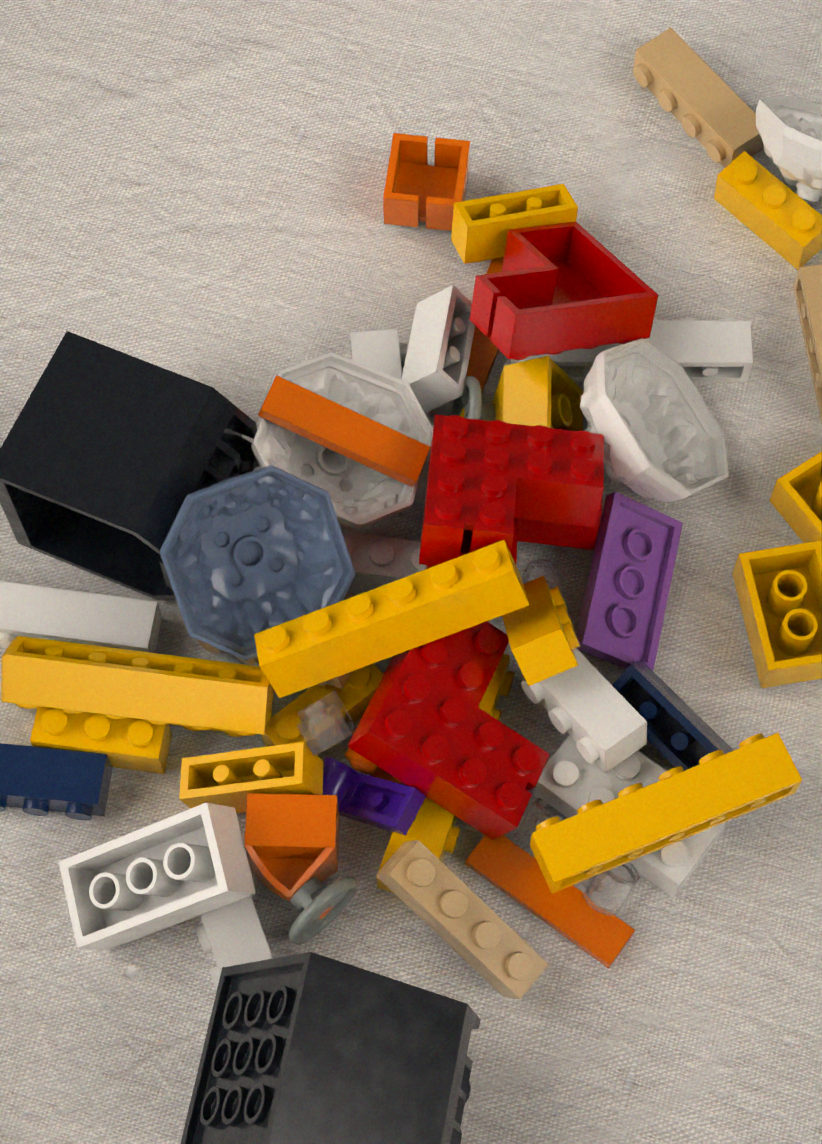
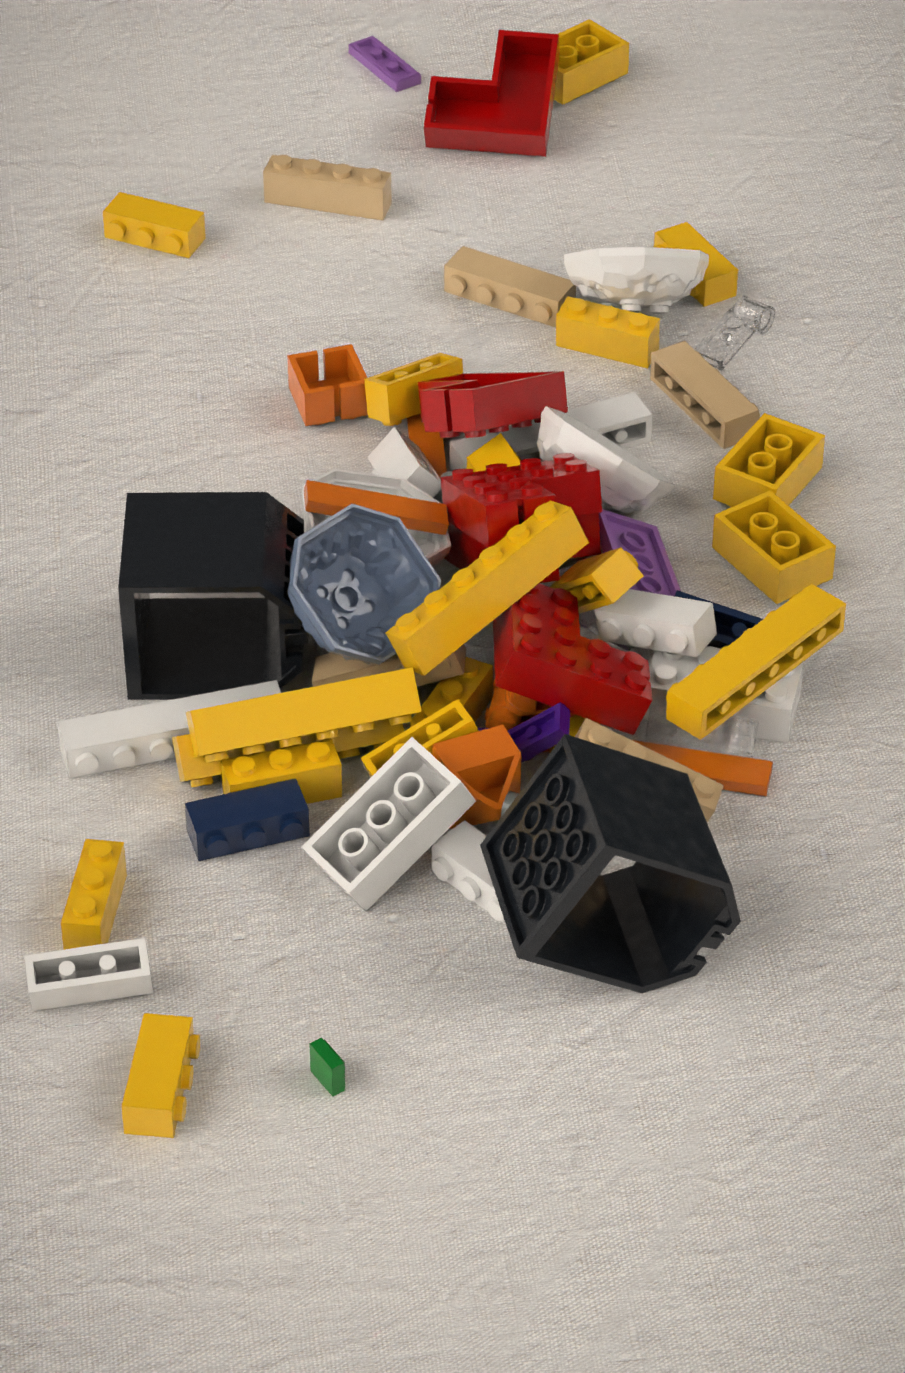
camera: 25 degrees left, 25 degrees down
(325, 723) = (468, 685): clear brick -> none

